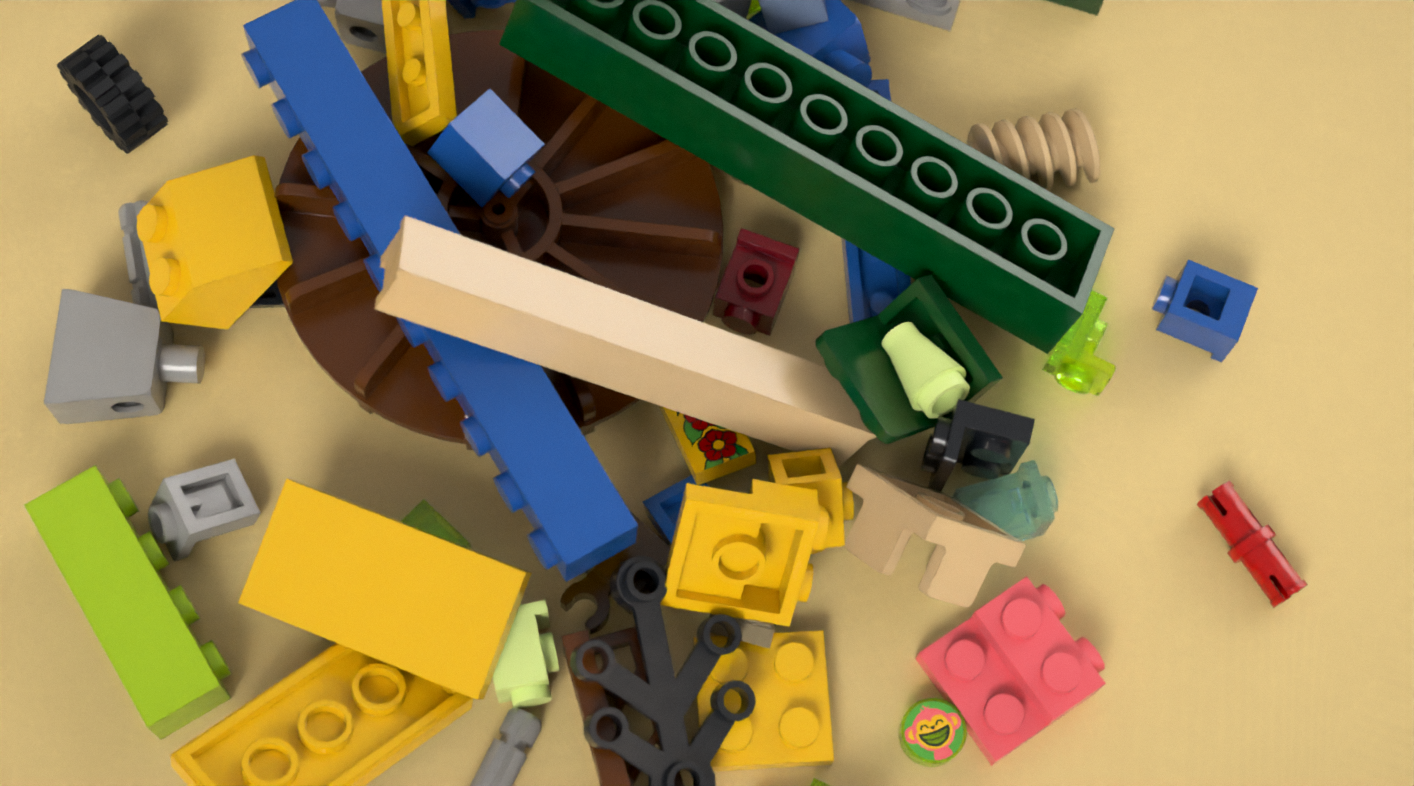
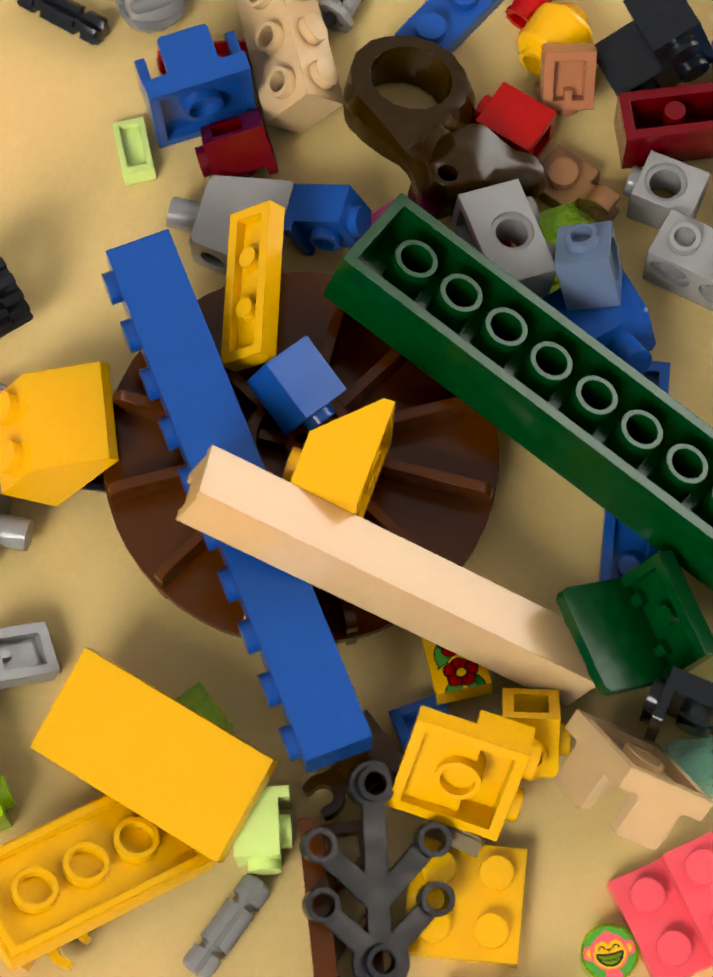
camera: 20 degrees right, 0 degrees up
(555, 213) = (345, 457): none -> yellow slope
(763, 262) = (530, 513): dark red brick -> none
(926, 372) = (650, 635): yellowish green cone -> none

